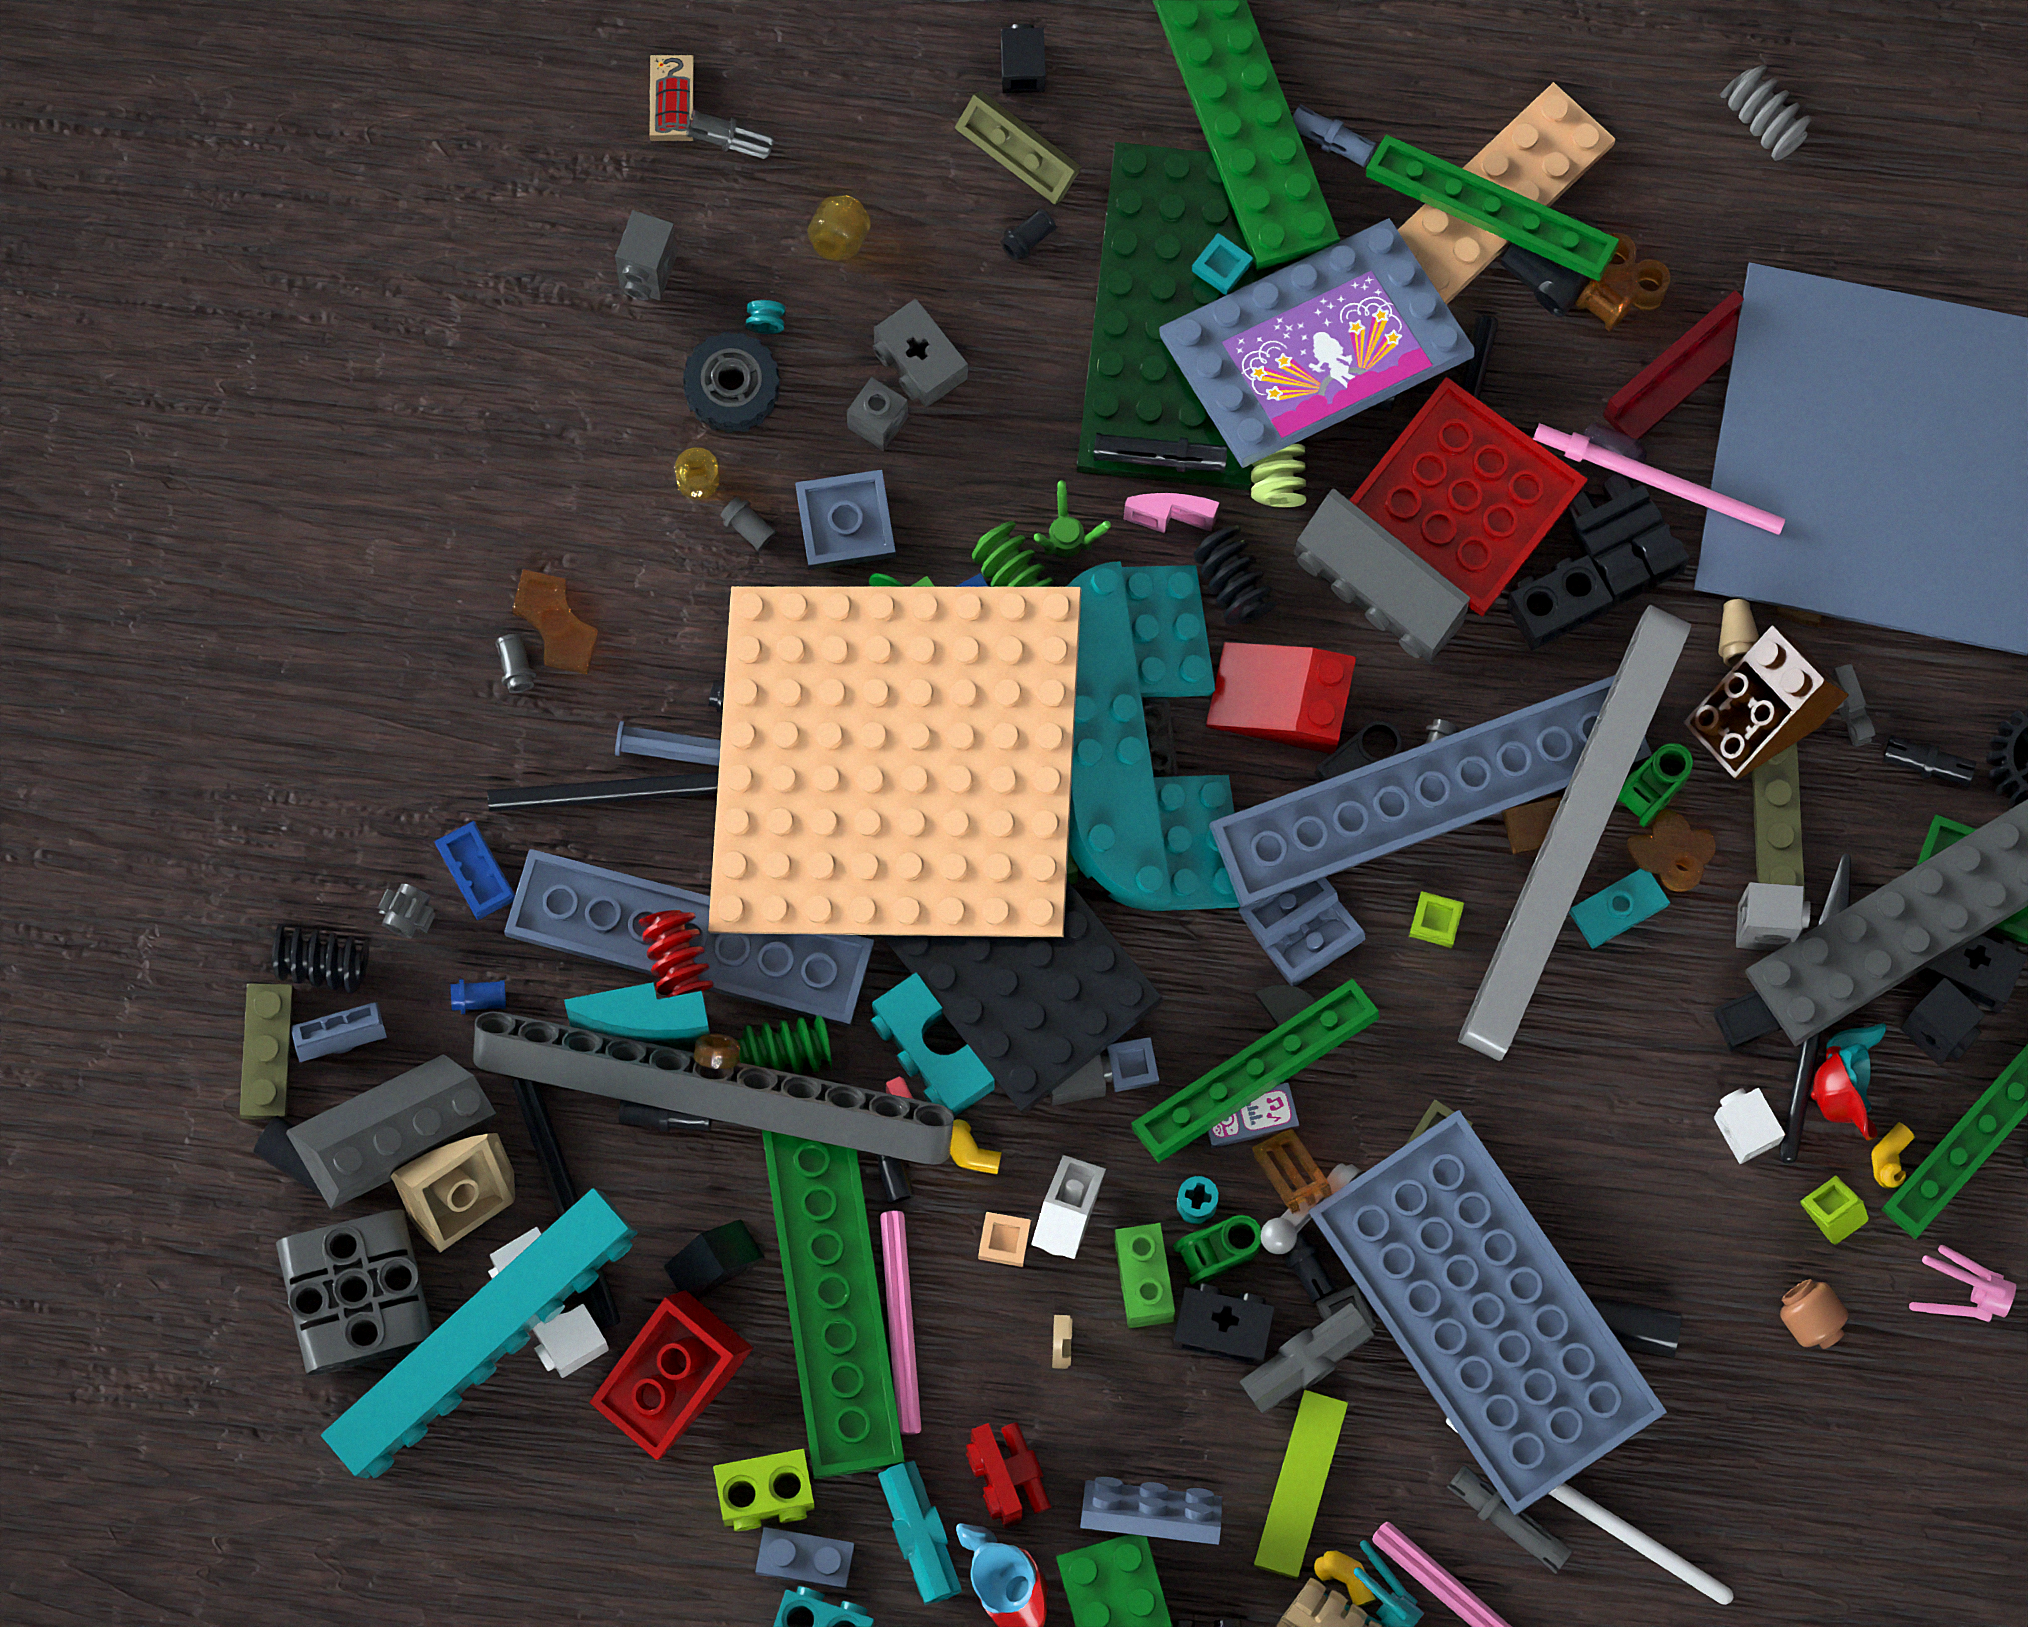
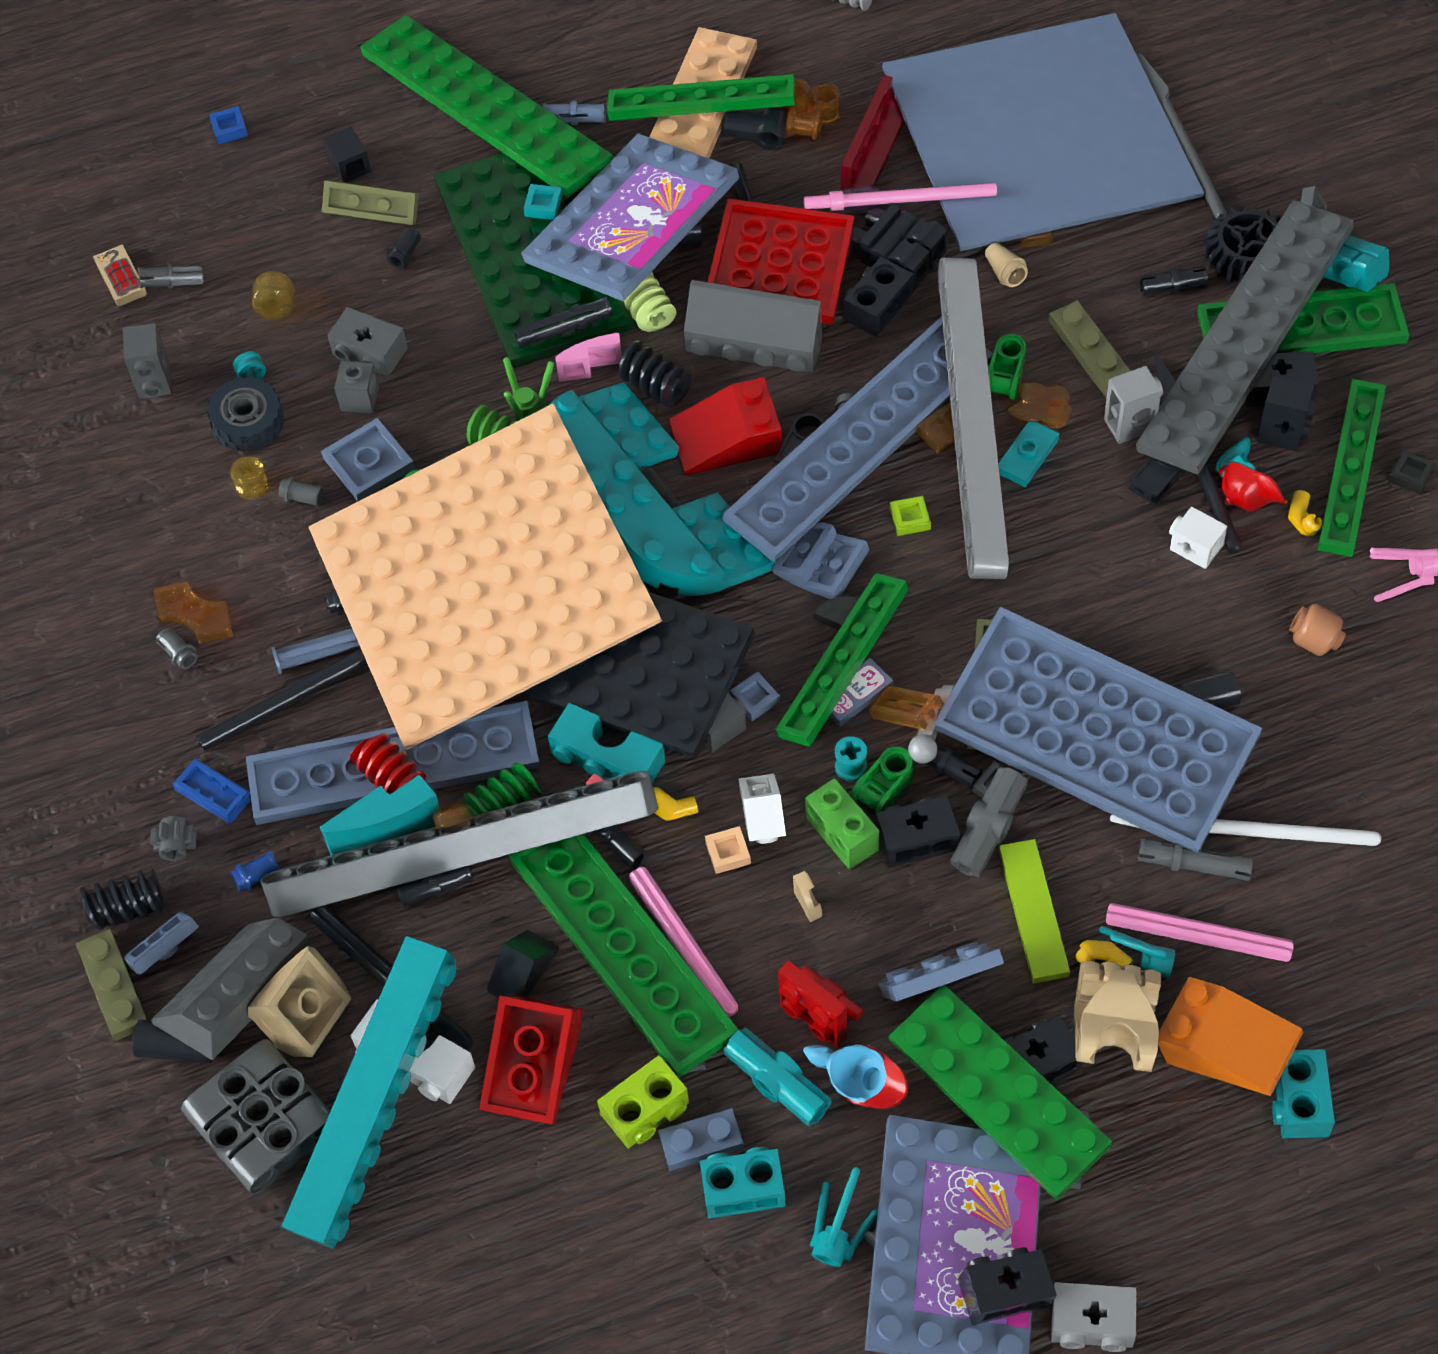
camera: 20 degrees left, 15 degrees down
(1765, 704) = (1049, 287): reddish brown slope -> none
(1835, 1210) = (1288, 564): lime slope -> none
(1852, 708) = (1100, 267): dark grey plate -> none

